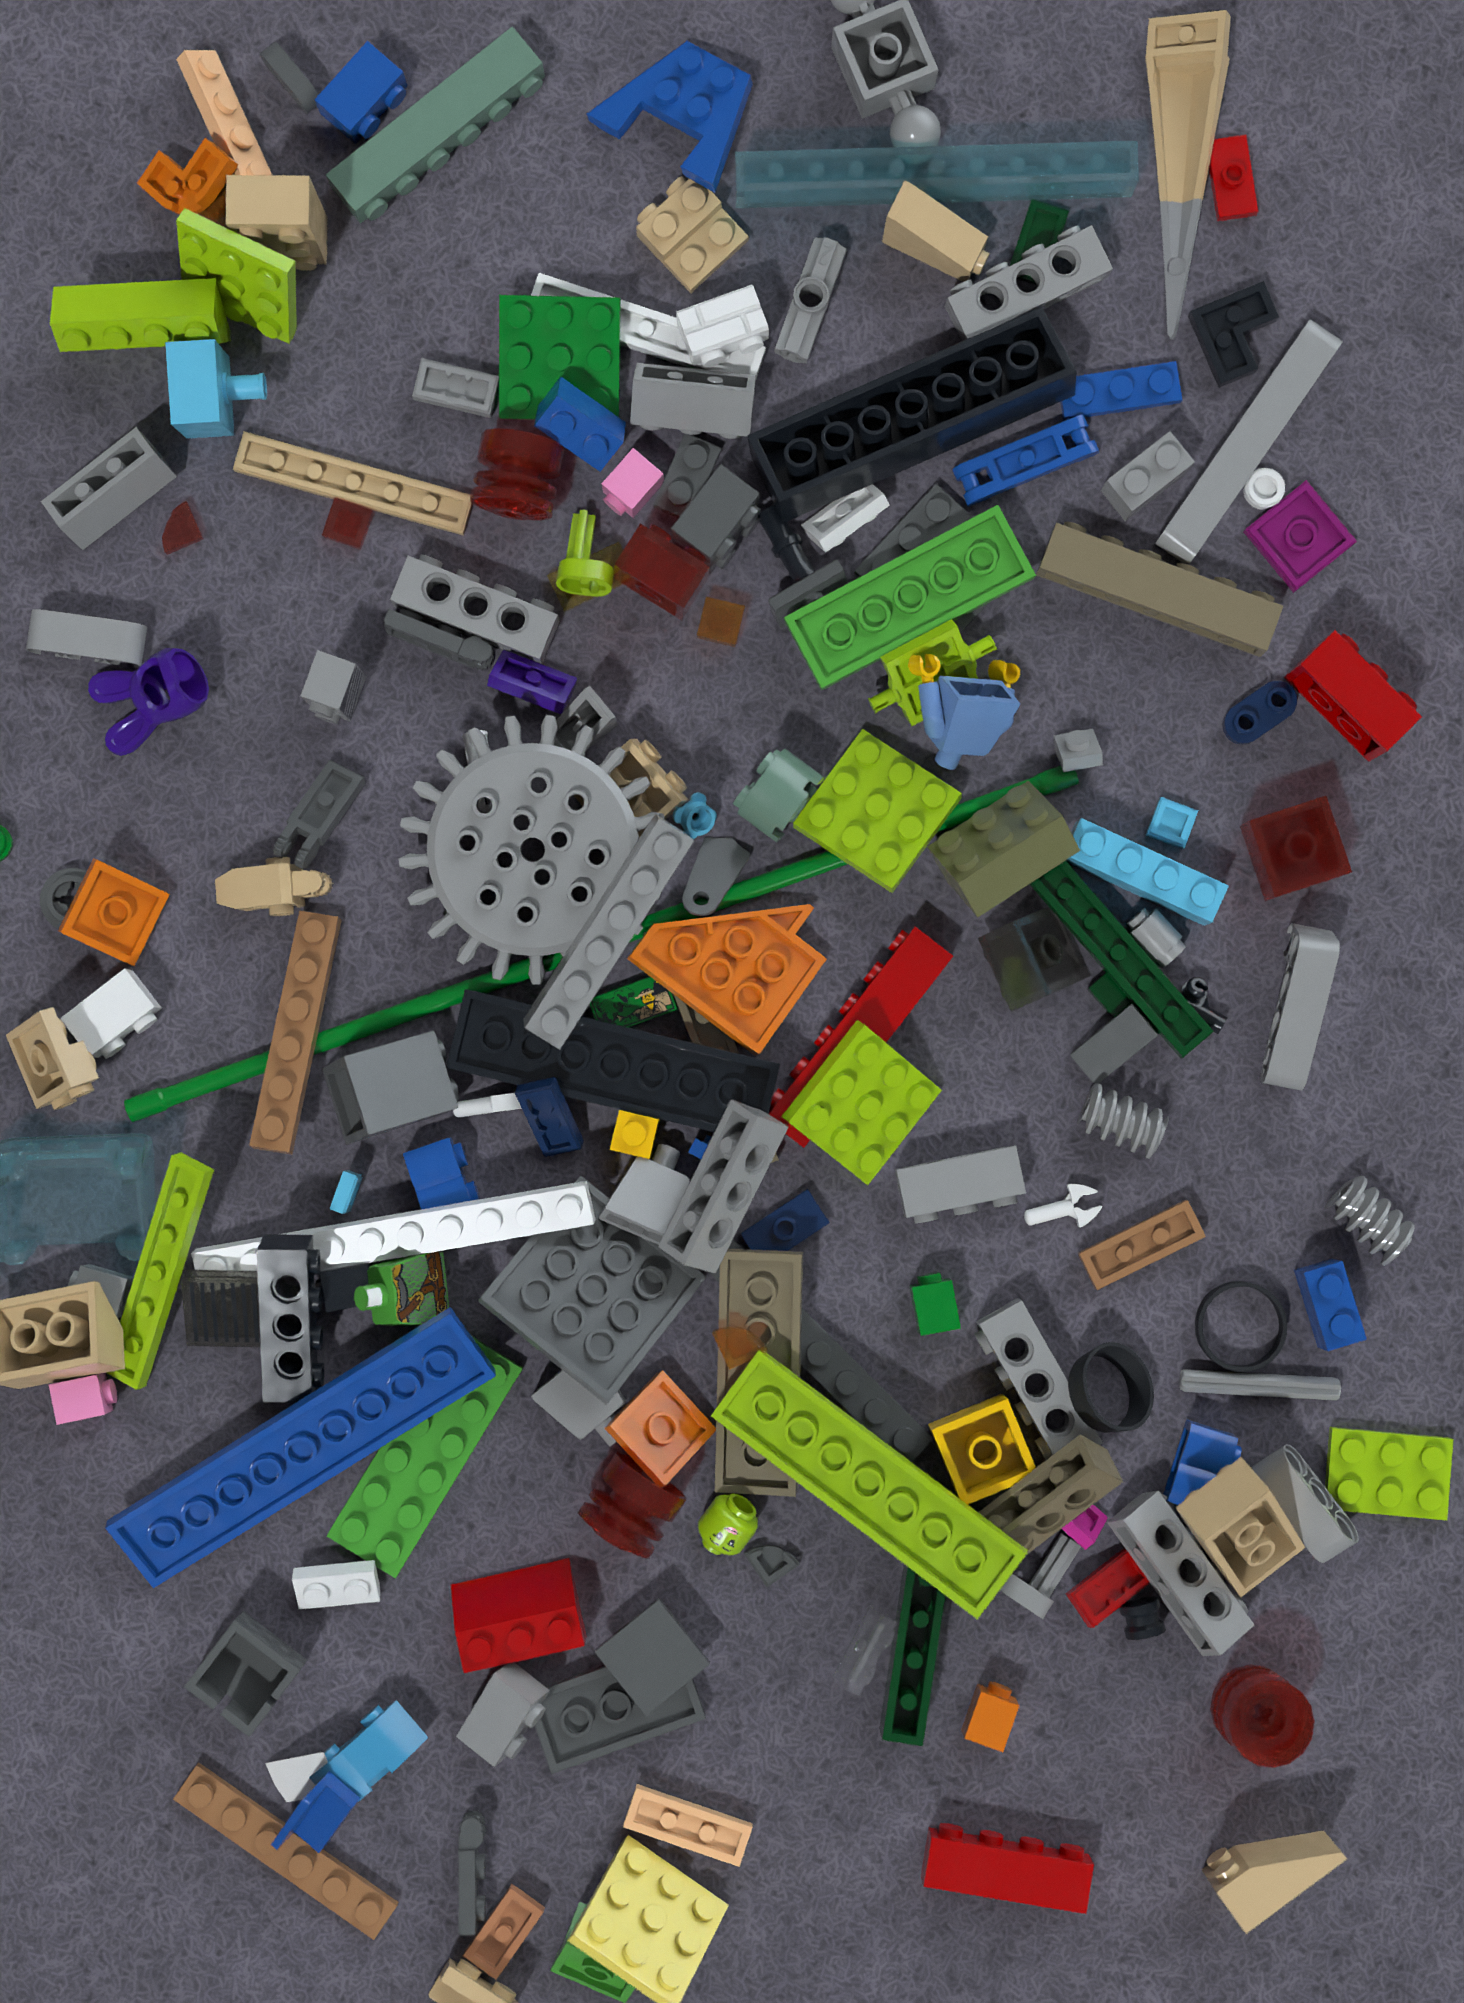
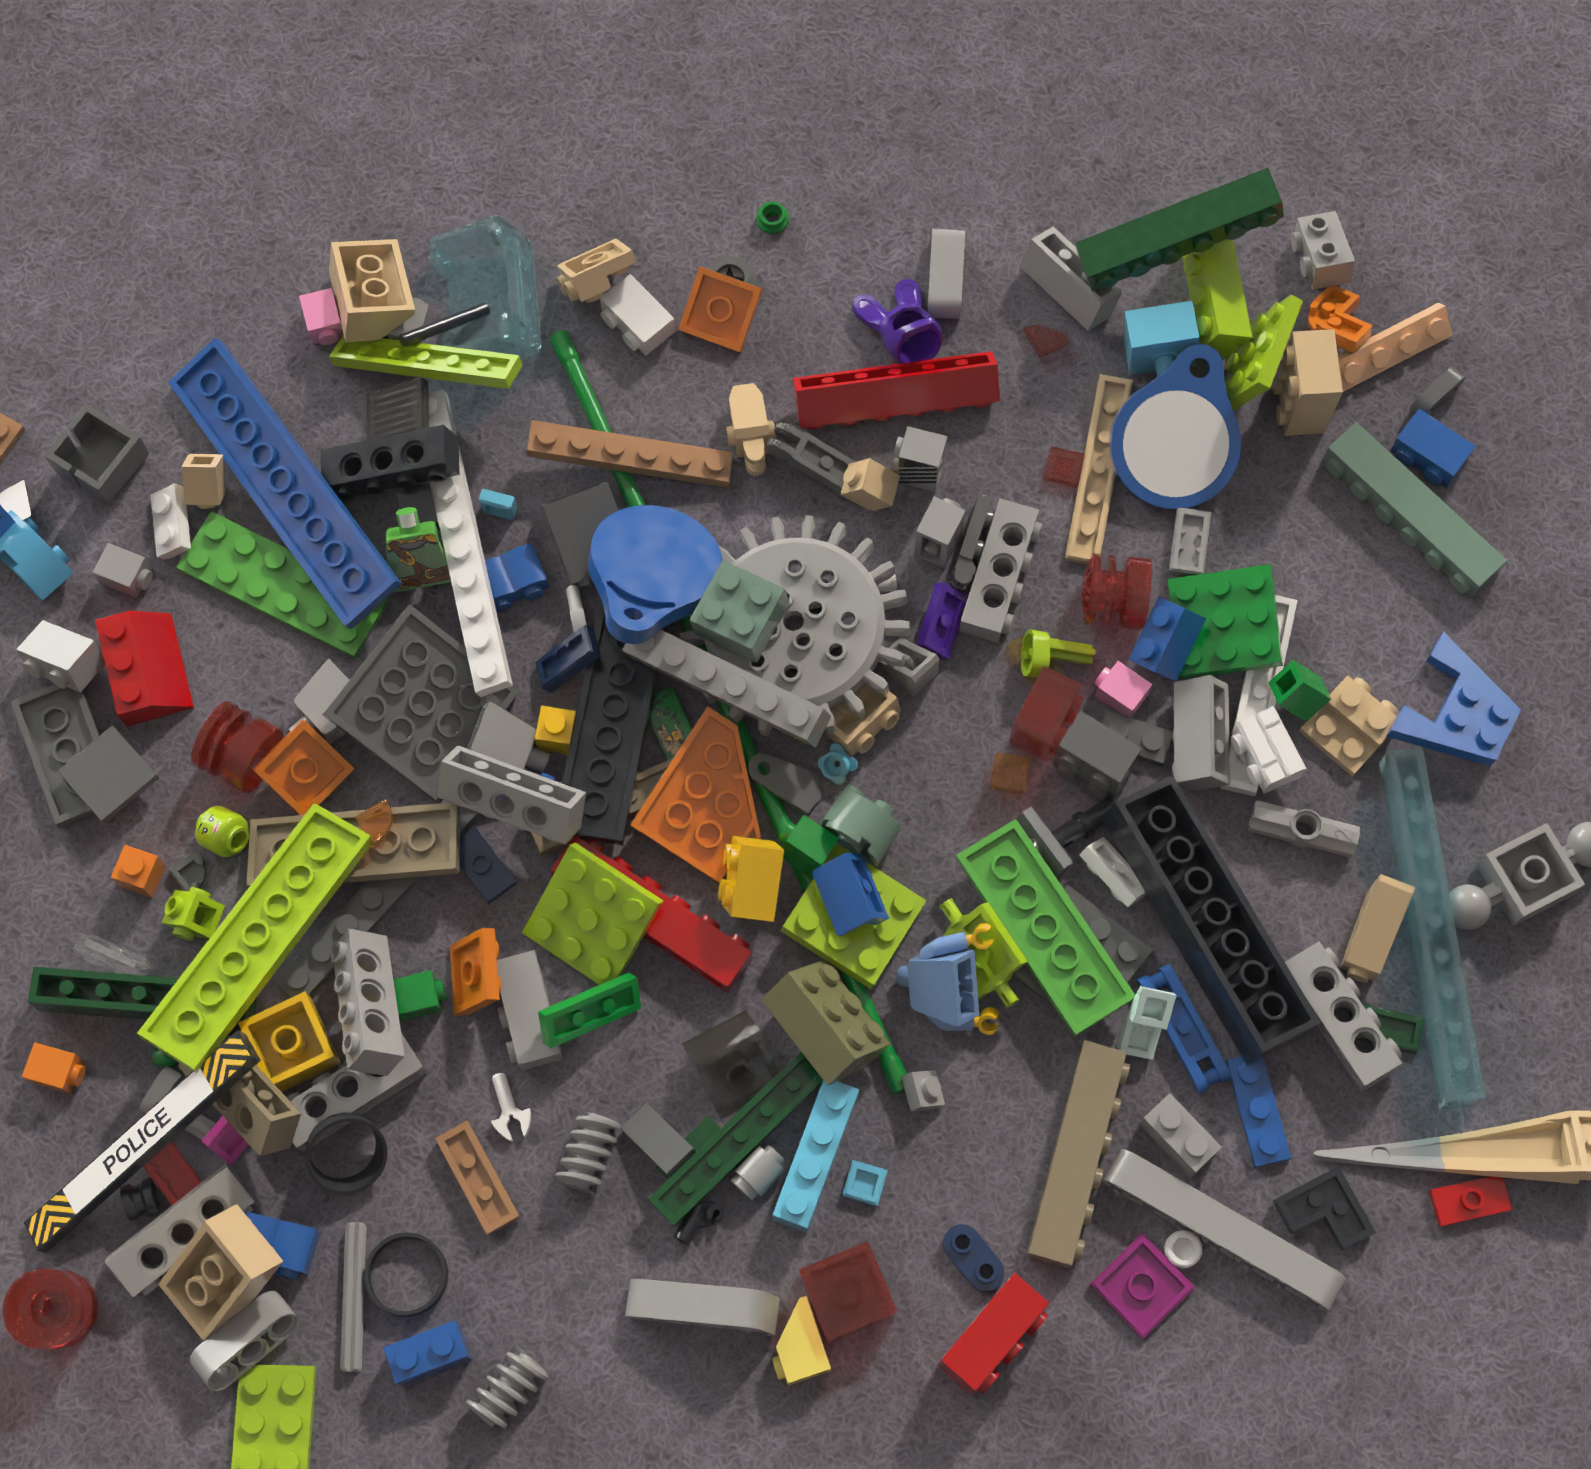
camera: 90 degrees right, 15 degrees down
(76, 342) = (1180, 230): none -> dark green brick
(95, 185) = (1323, 250): none -> light grey brick
(109, 1247) = (444, 324): none -> black bar
(238, 709) = (896, 390): none -> red brick
(289, 1543) = (203, 480): none -> tan brick
(325, 383) = (1177, 435): none -> piece
(358, 750) = (870, 484): none -> tan brick
(396, 1640) = (123, 570): none -> light grey brick
(427, 672) = (939, 531): none -> light grey brick
(461, 1009) = (650, 568): none -> piece
(523, 909) = (739, 611): none -> sand green brick
(654, 281) = (1299, 690): none -> green brick
(769, 1621) = (138, 871): none -> orange brick
(797, 855) = (806, 844): none -> green brick
(825, 1558) = (192, 914): none -> lime brick
(835, 919) = (751, 878): none -> yellow brick
(861, 810) = (849, 893): none -> blue panel
(917, 1238) = (475, 972): none -> orange plate
(949, 1359) = (367, 1002): none -> light grey brick
(970, 1111) = (589, 1010): none -> green plate
(1022, 500) = (1144, 1020): none -> light aqua slope
(1090, 1613) = (141, 1141): none -> tile
(1346, 904) = (800, 1347): none -> light yellow slope

